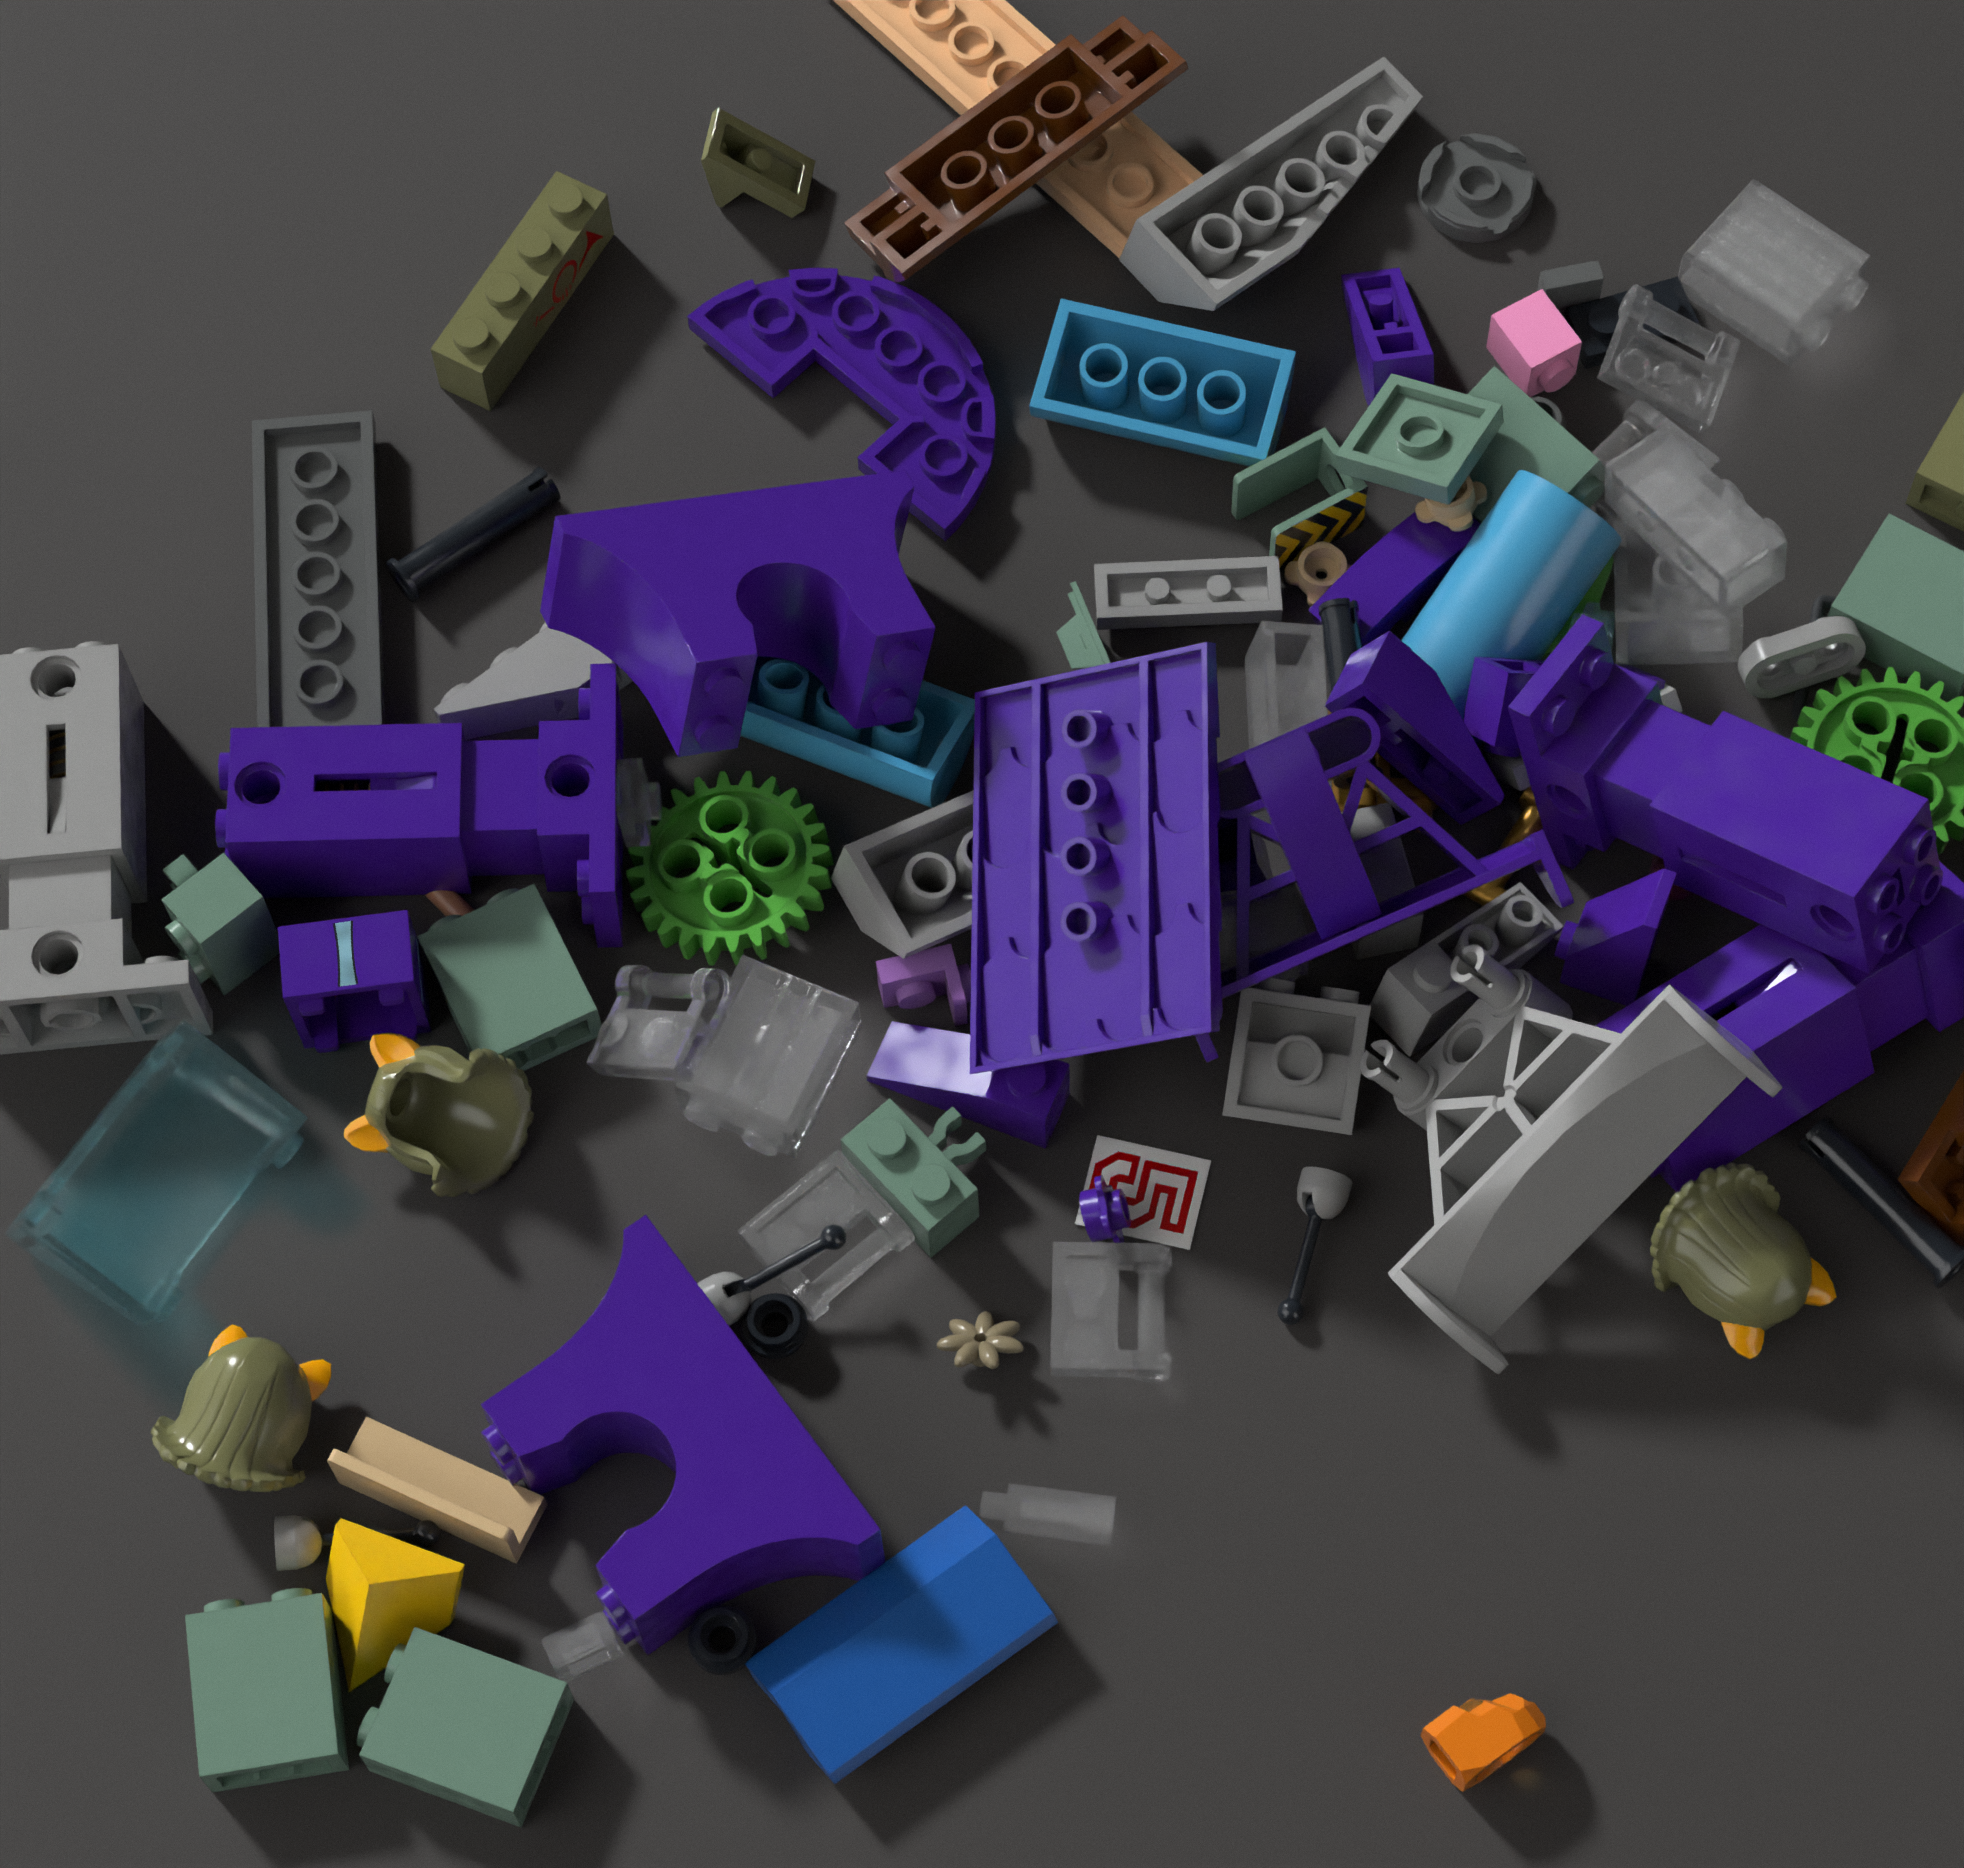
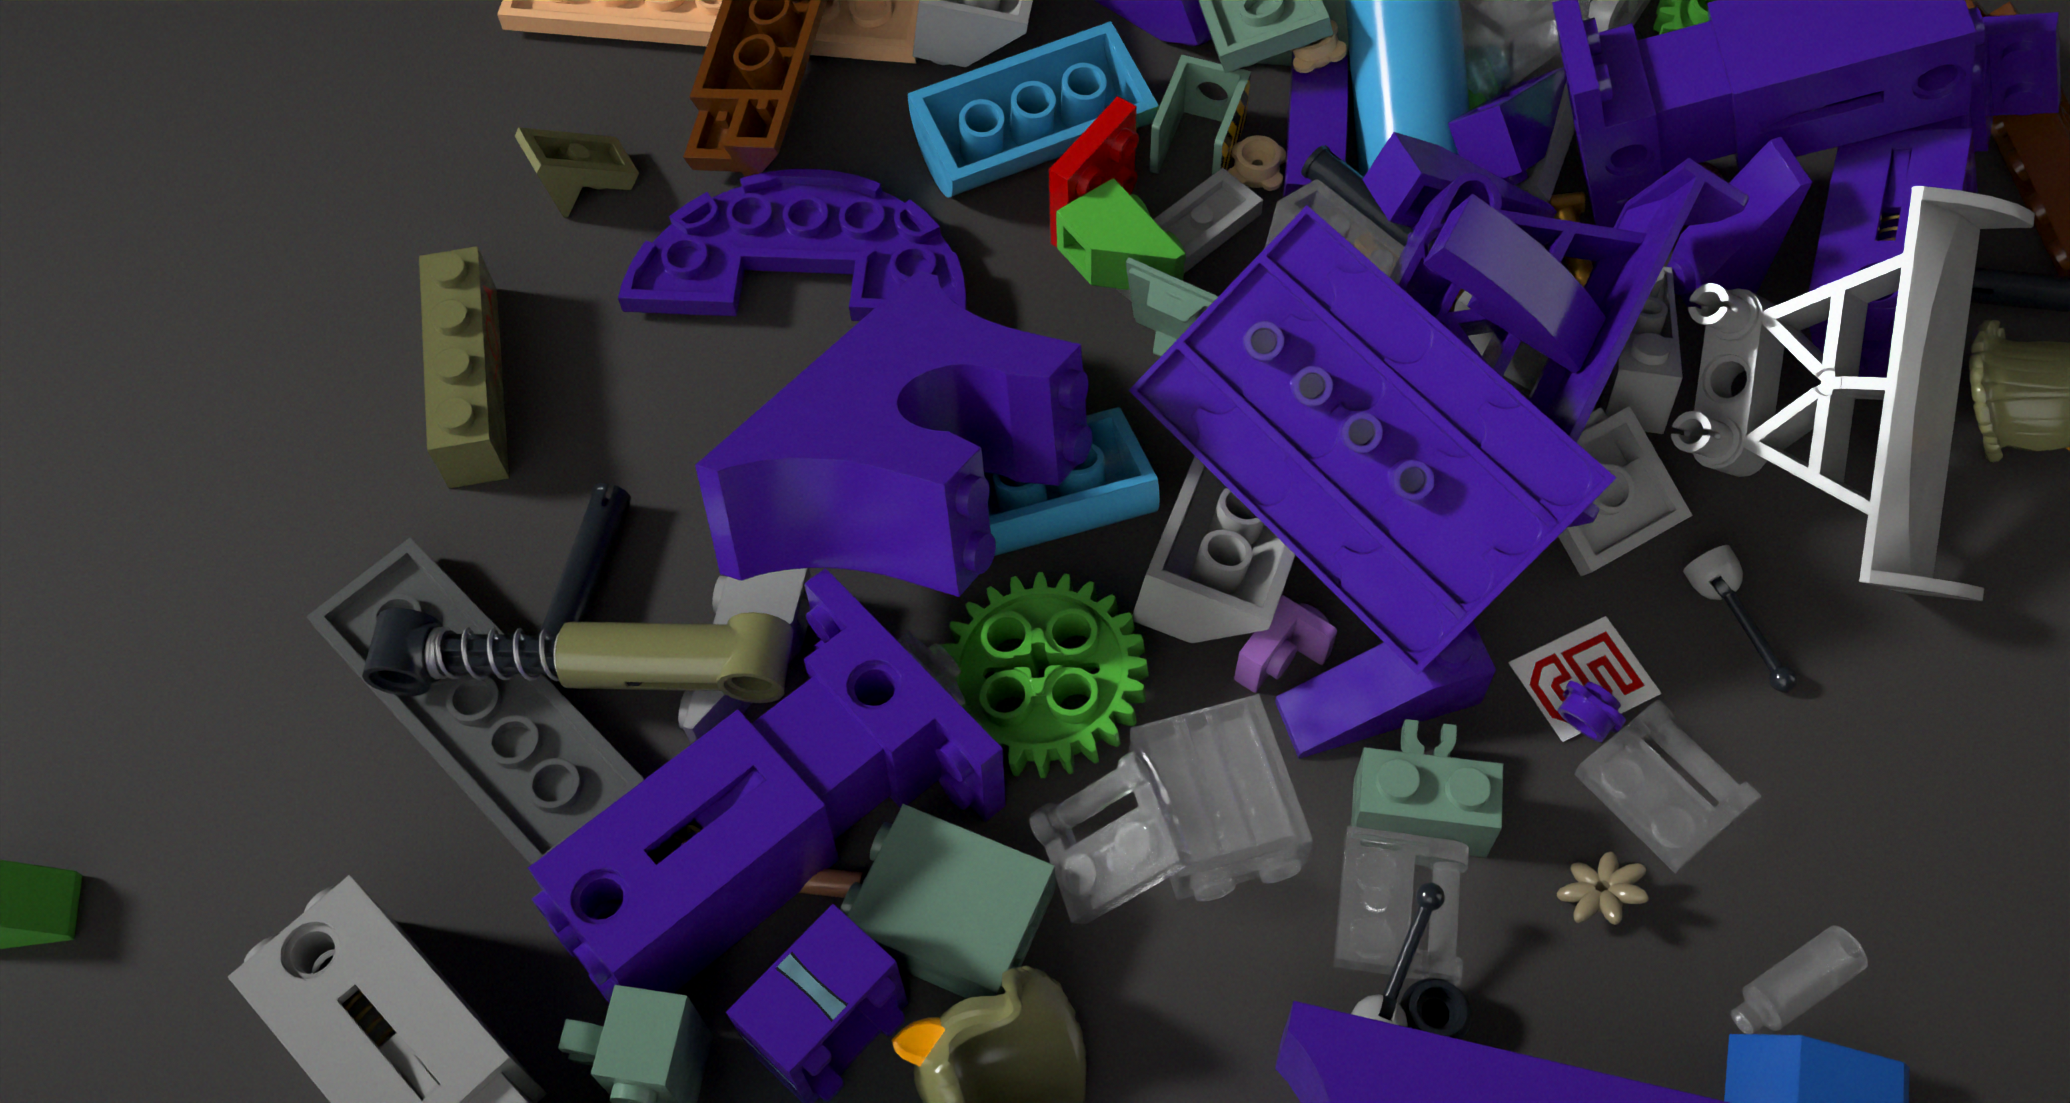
camera: 40 degrees left, 5 degrees down
(504, 684) = (739, 658): none -> olive piece
(1106, 556) = (1109, 227): none -> bright green slope
(1149, 485) = (1096, 157): none -> red plate

